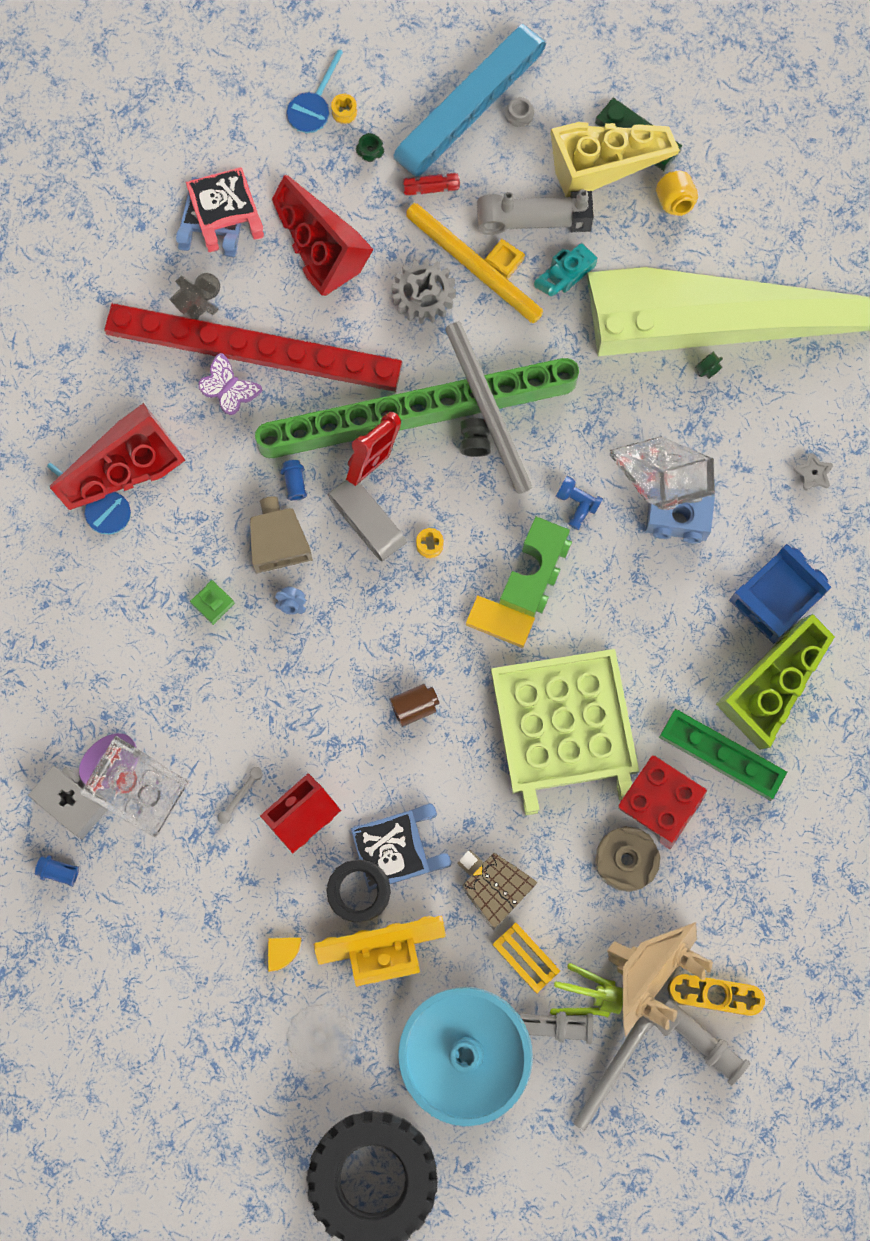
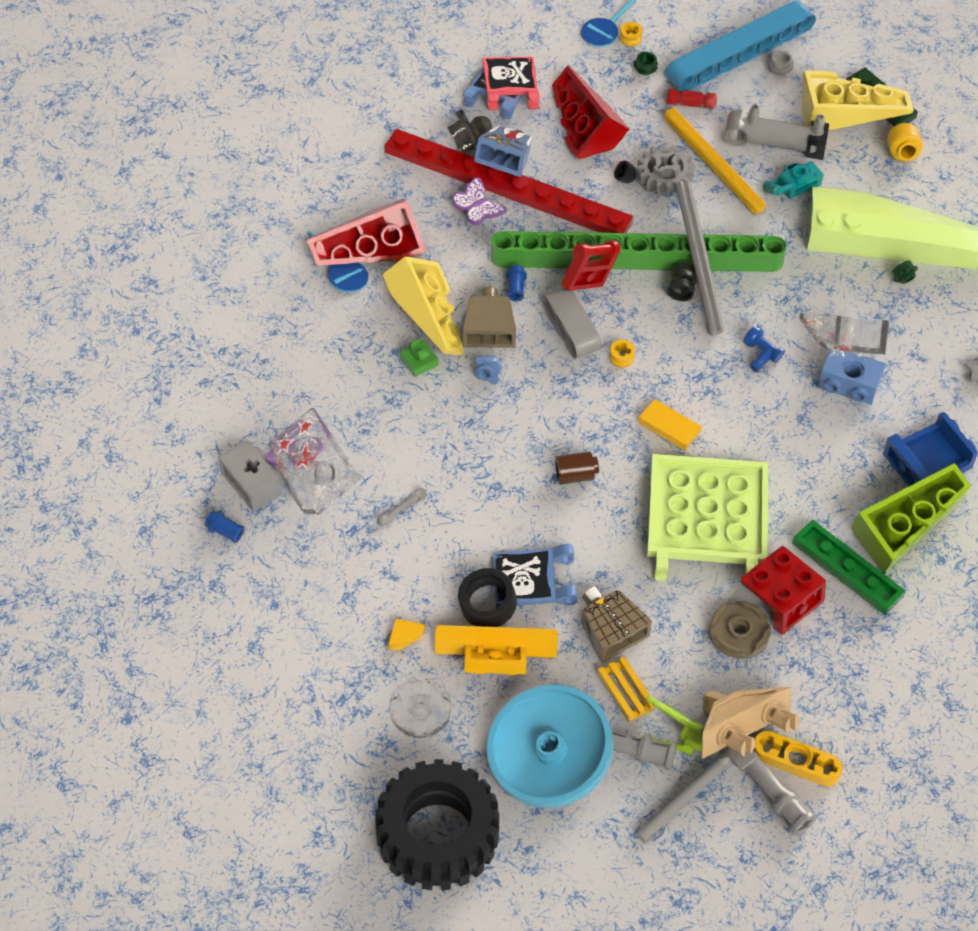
camera: 15 degrees right, 20 degrees down
(195, 523) = (422, 293): none -> light yellow wedge
(241, 309) = (504, 150): none -> medium blue torso
(300, 813) = (452, 525): red brick -> none
(377, 299) = (625, 172): none -> black hinge
(505, 258) = (743, 162): yellow tile -> none
(546, 544) = (726, 373): bright green arch -> none

